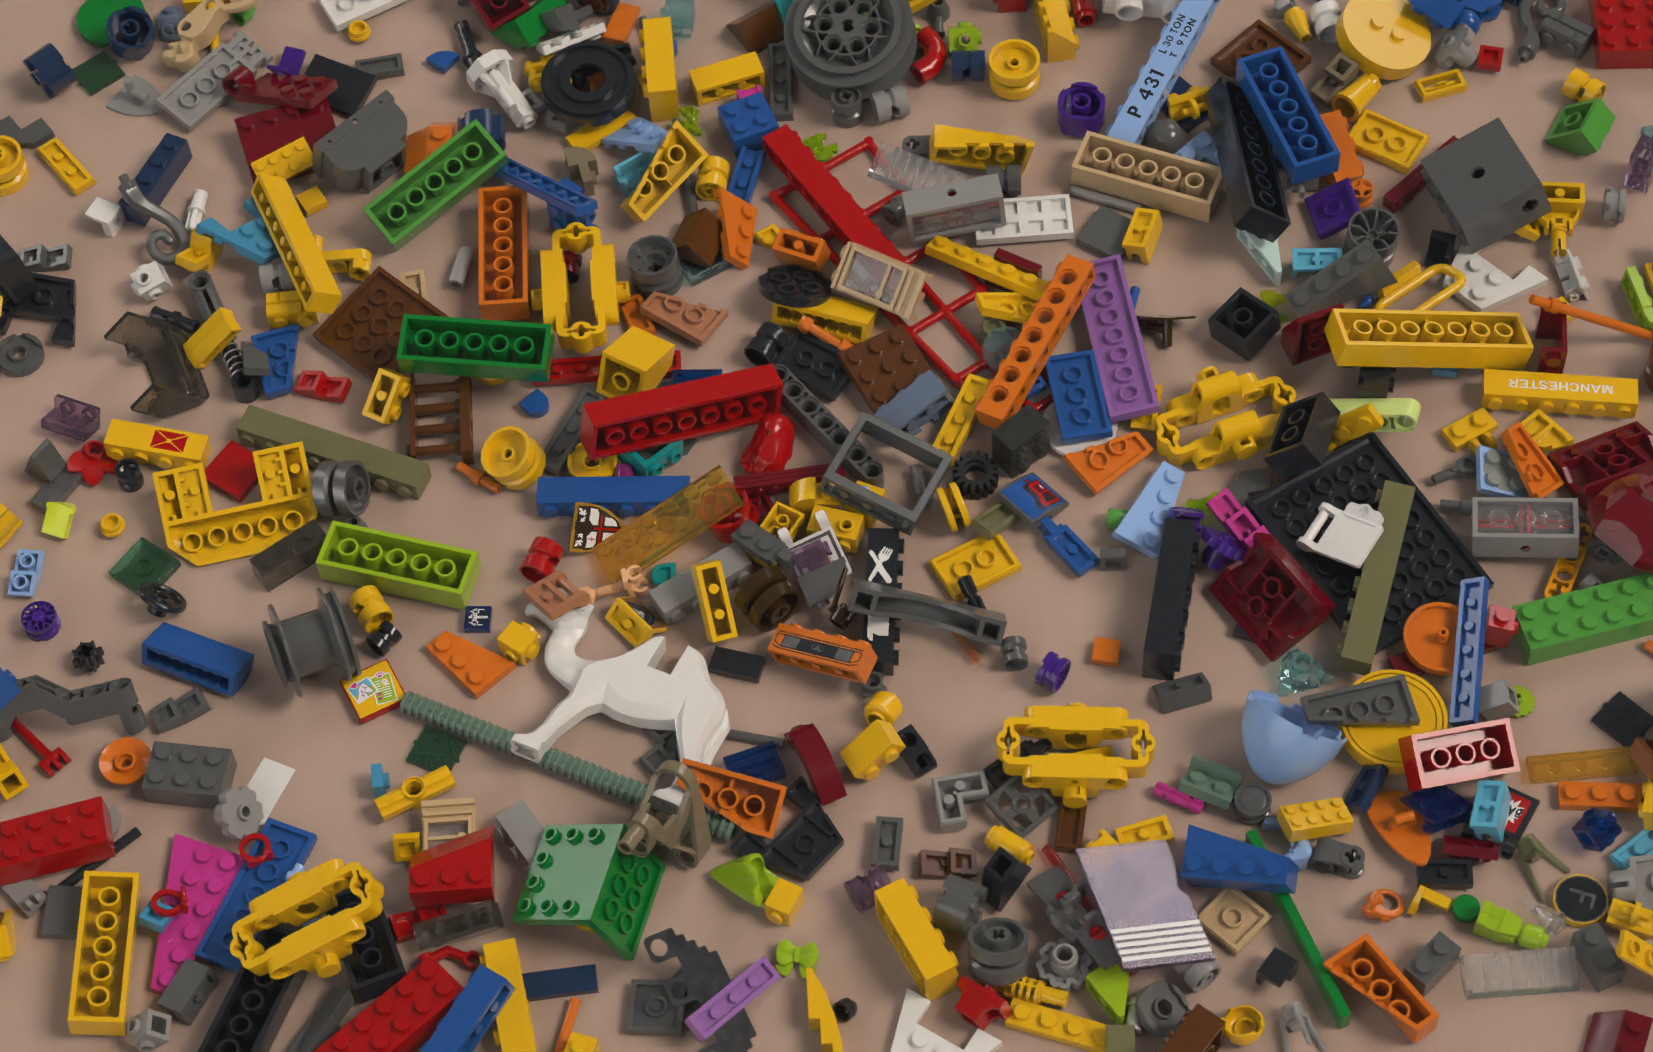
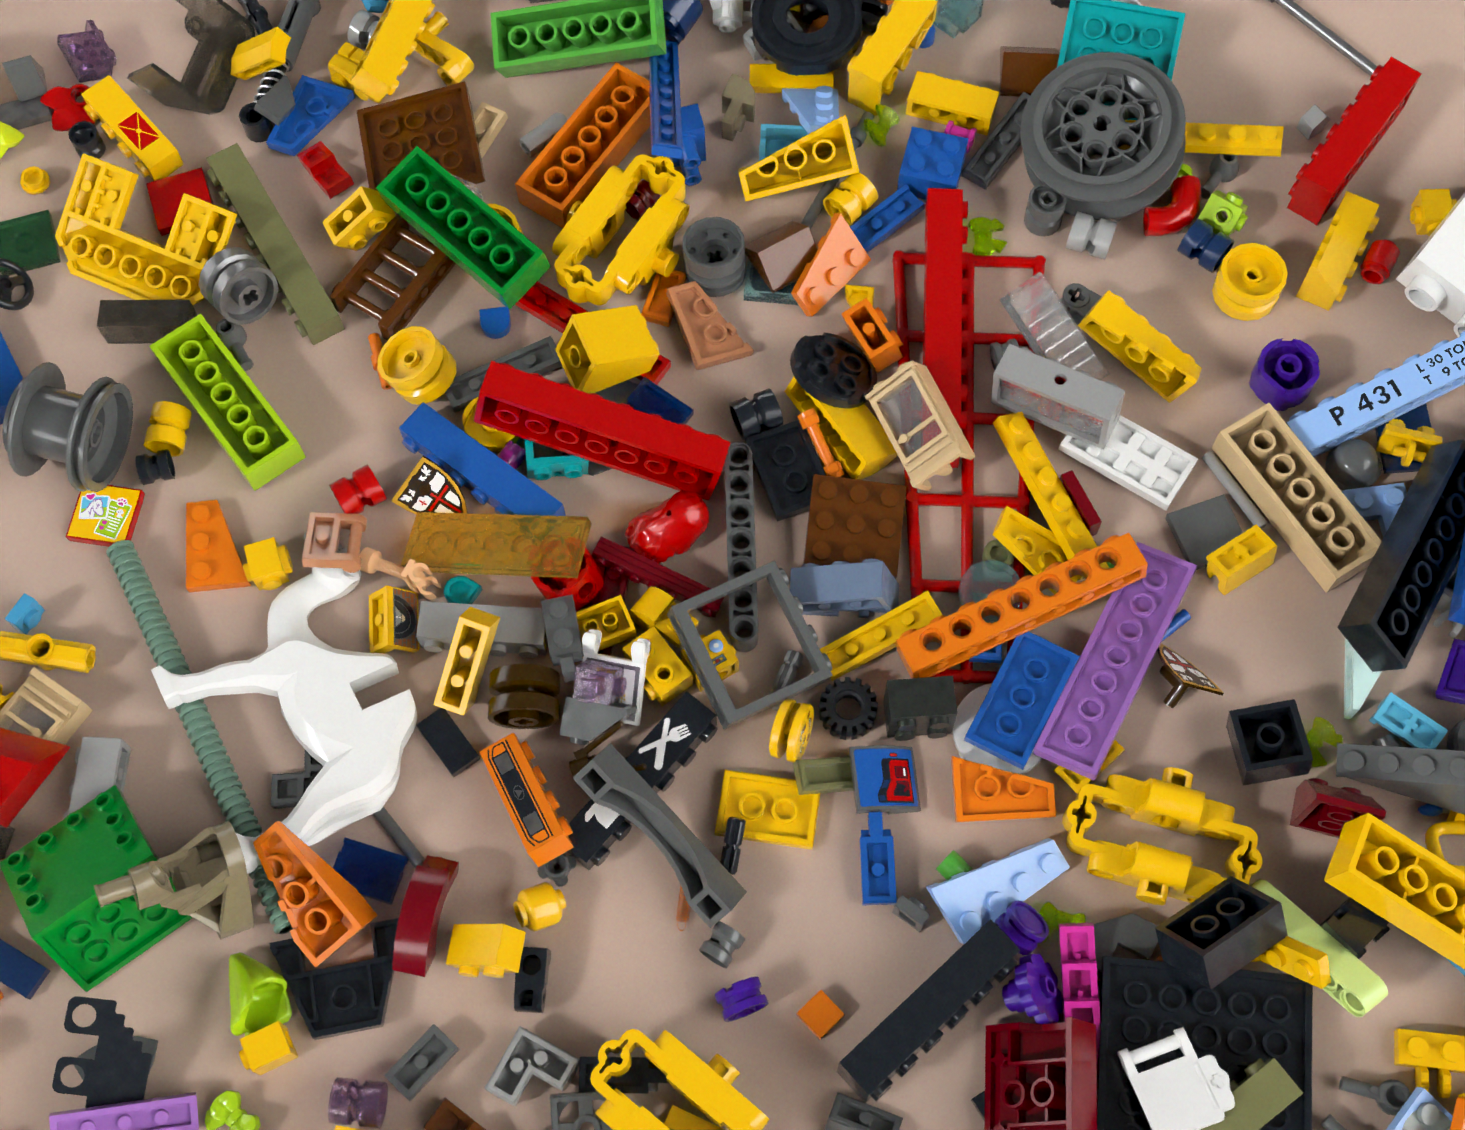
camera: 35 degrees right, 10 degrees up
(436, 749) = (107, 620): clear green piece -> none
(478, 619) = (257, 509): clear blue tile -> none
(652, 1011) = (39, 1062): dark grey tile -> none
(1009, 177) = (1143, 398): dark grey wheel -> none

